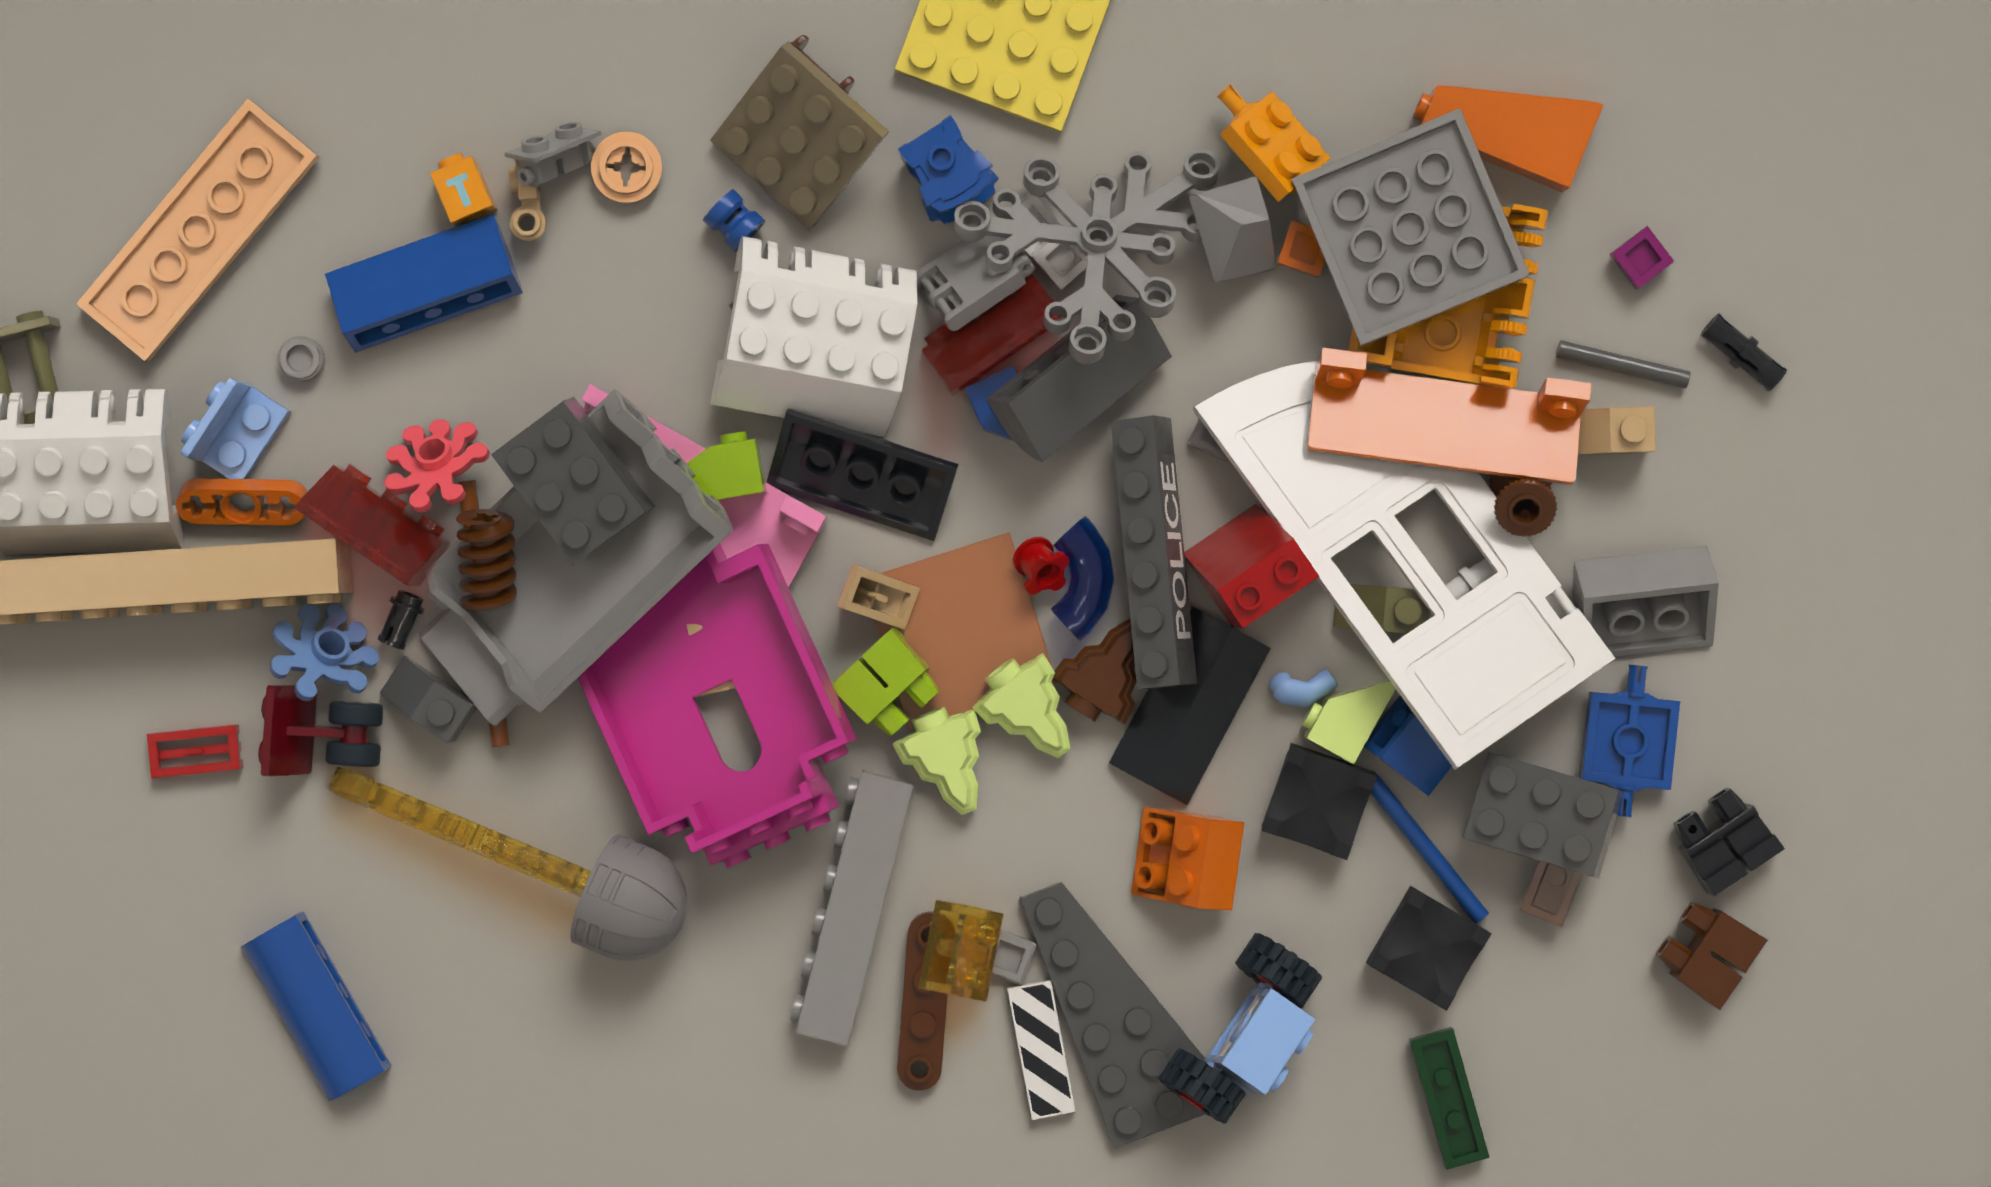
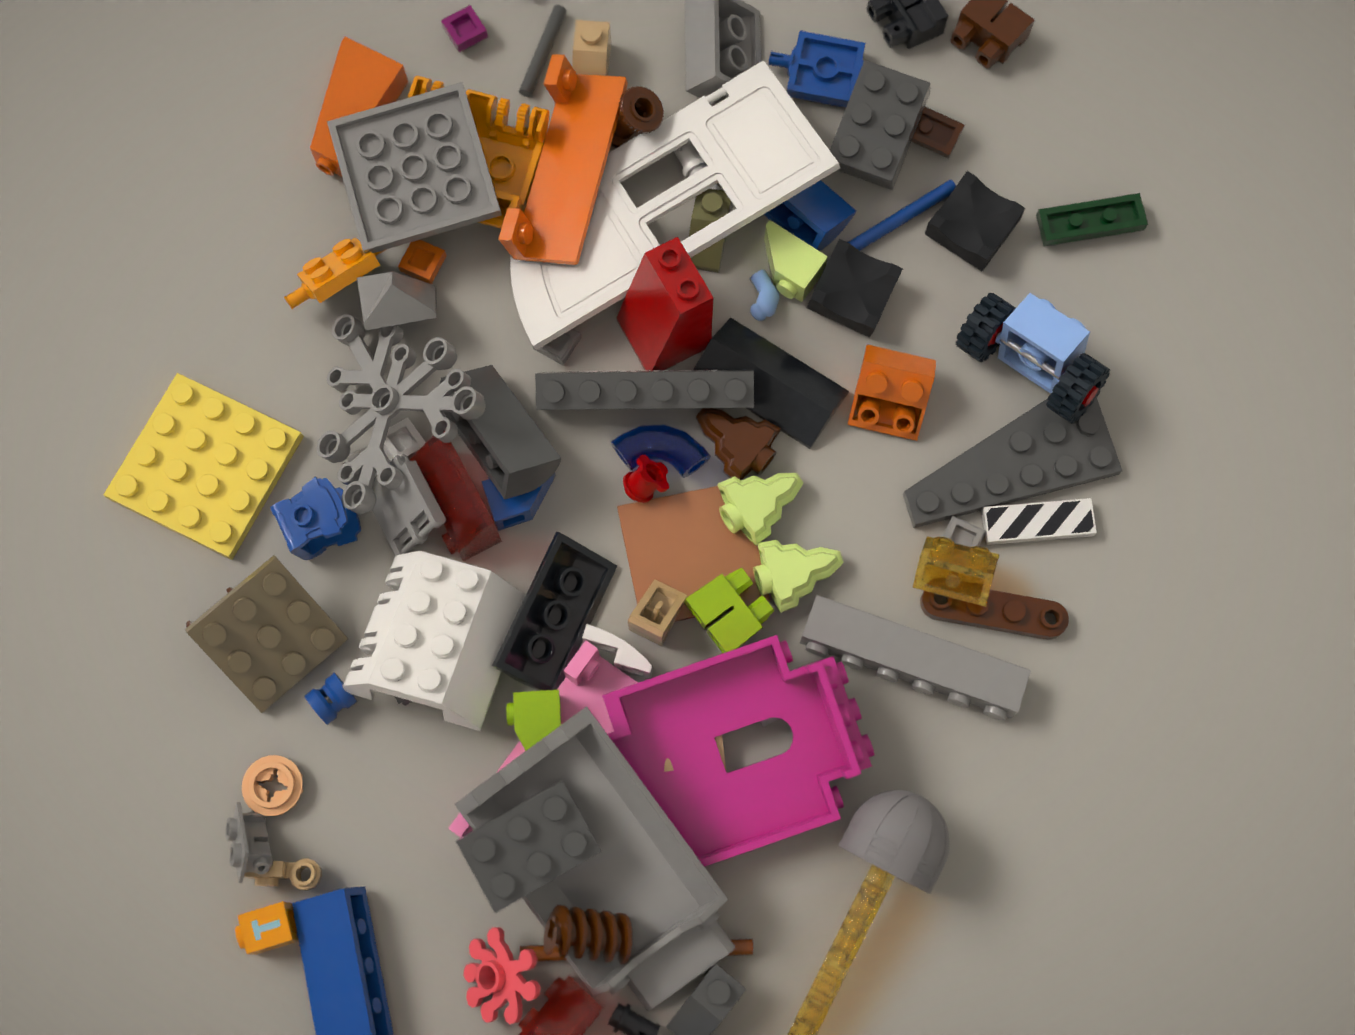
camera: 85 degrees left, 15 degrees down
(818, 565) = (626, 658): none -> white slope

